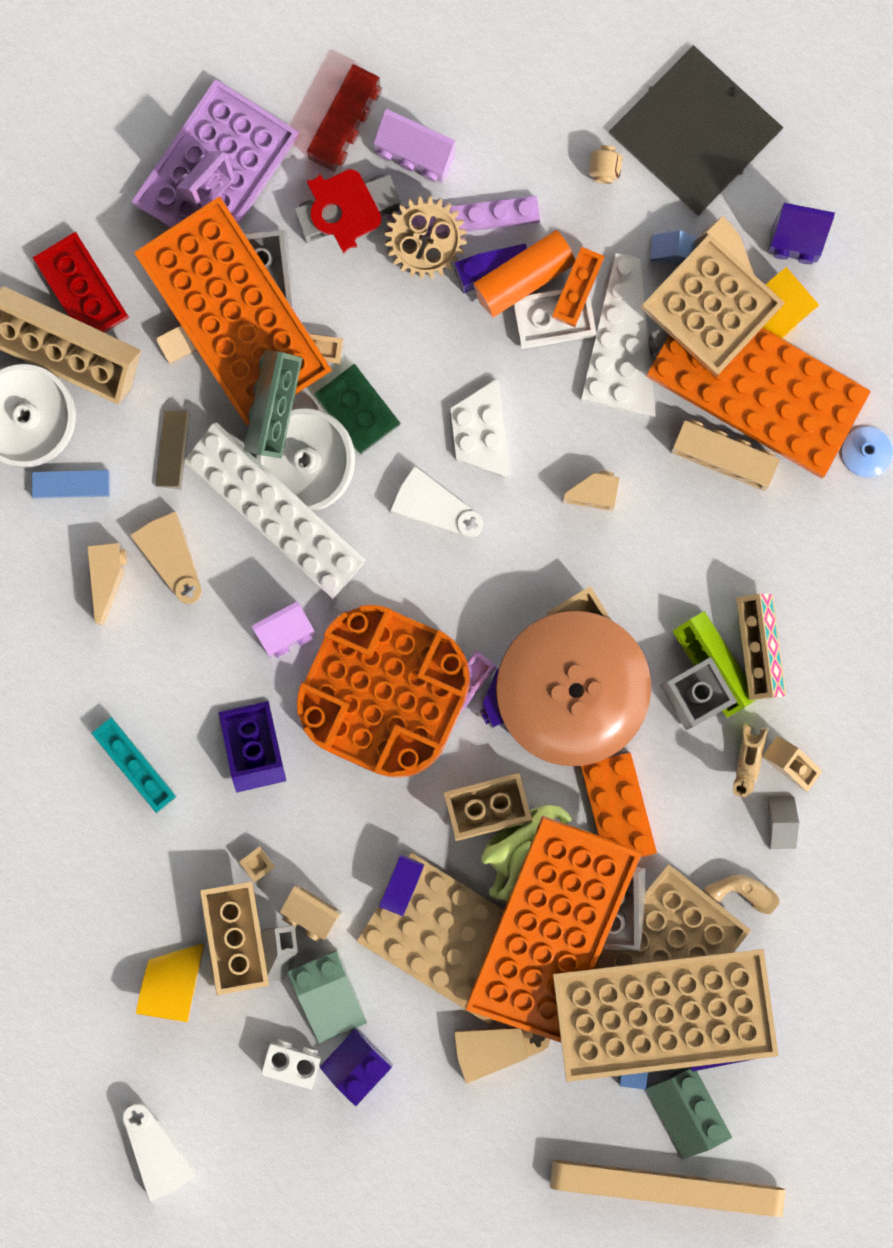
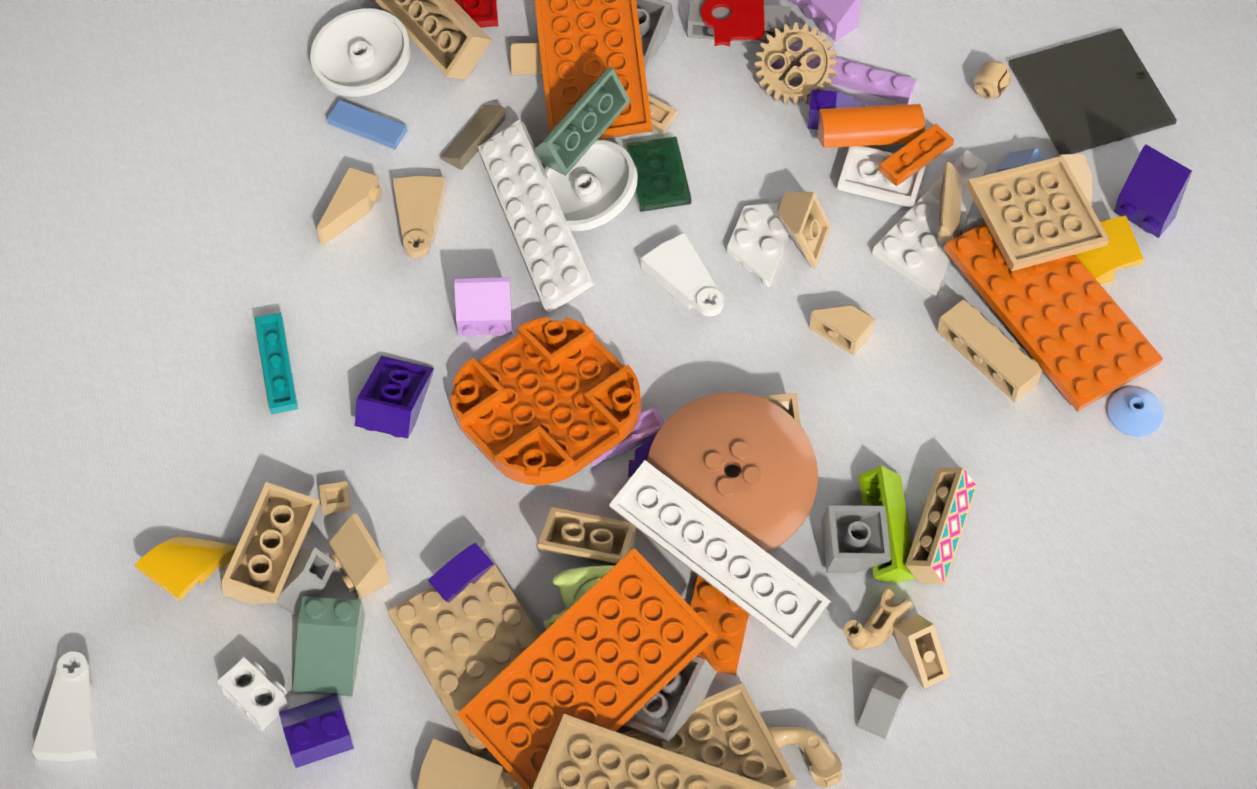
camera: 25 degrees right, 25 degrees down
(514, 407) = (805, 223): none -> tan slope
(599, 768) = (719, 554): none -> white plate
(630, 326) = (950, 204): none -> tan slope

